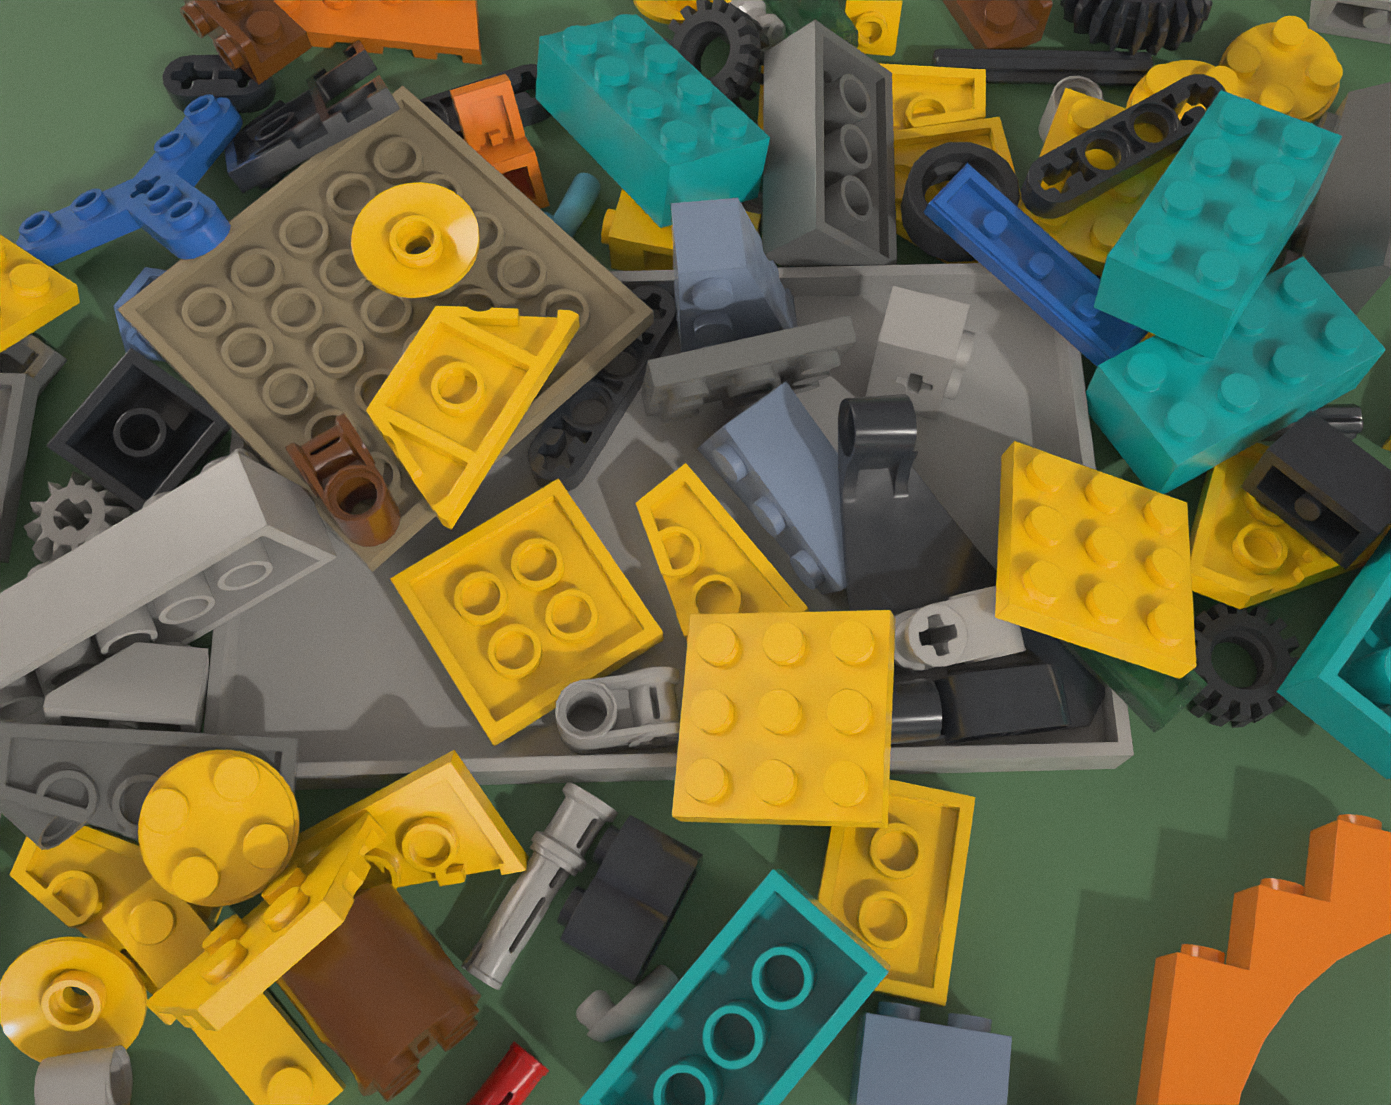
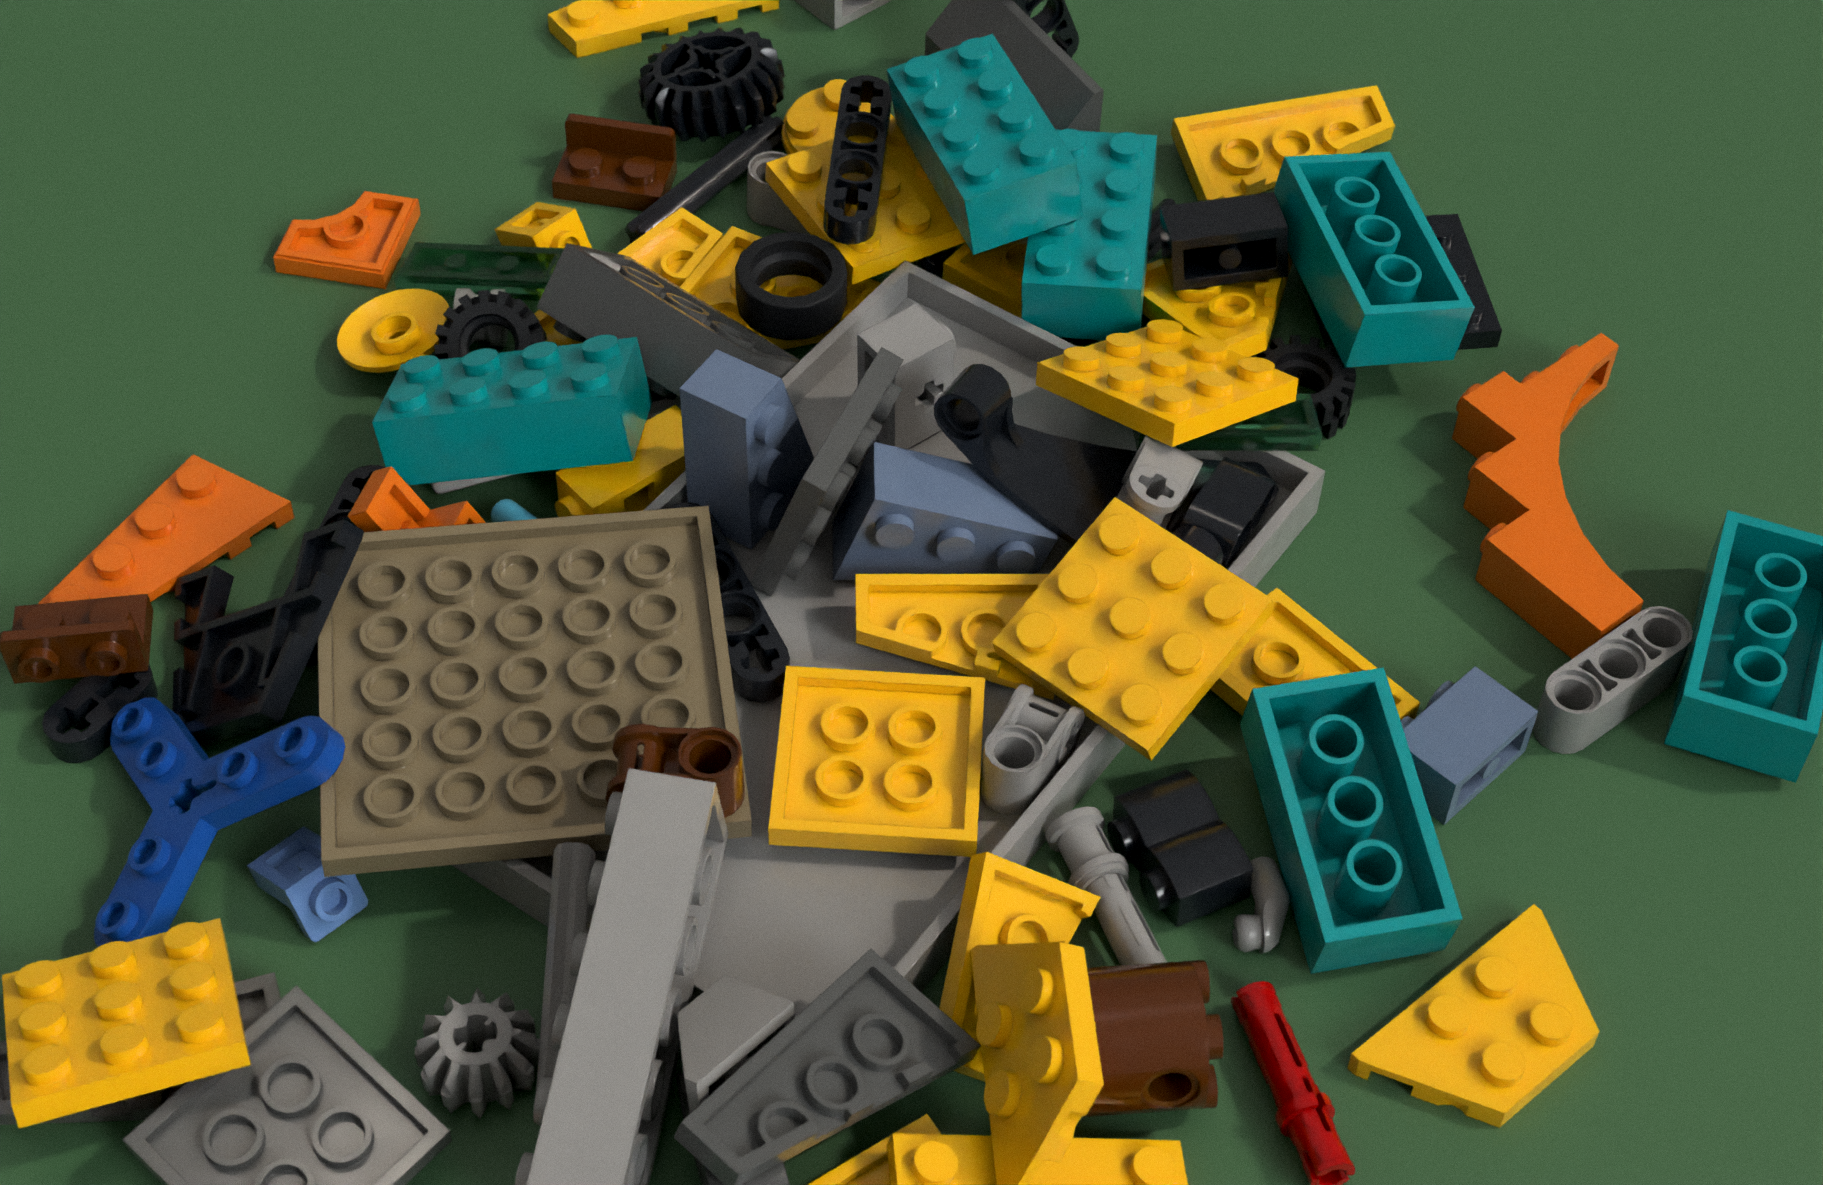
camera: 55 degrees left, 20 degrees down
(139, 432) = (449, 930): black slope -> none
(218, 827) = (906, 1039): yellow piece -> none
(412, 218) = (497, 598): yellow dish -> none
(464, 394) = (673, 654): yellow wing -> none
(1030, 264) = (900, 272): blue tile -> none
(1285, 68) = (853, 50): yellow piece -> none

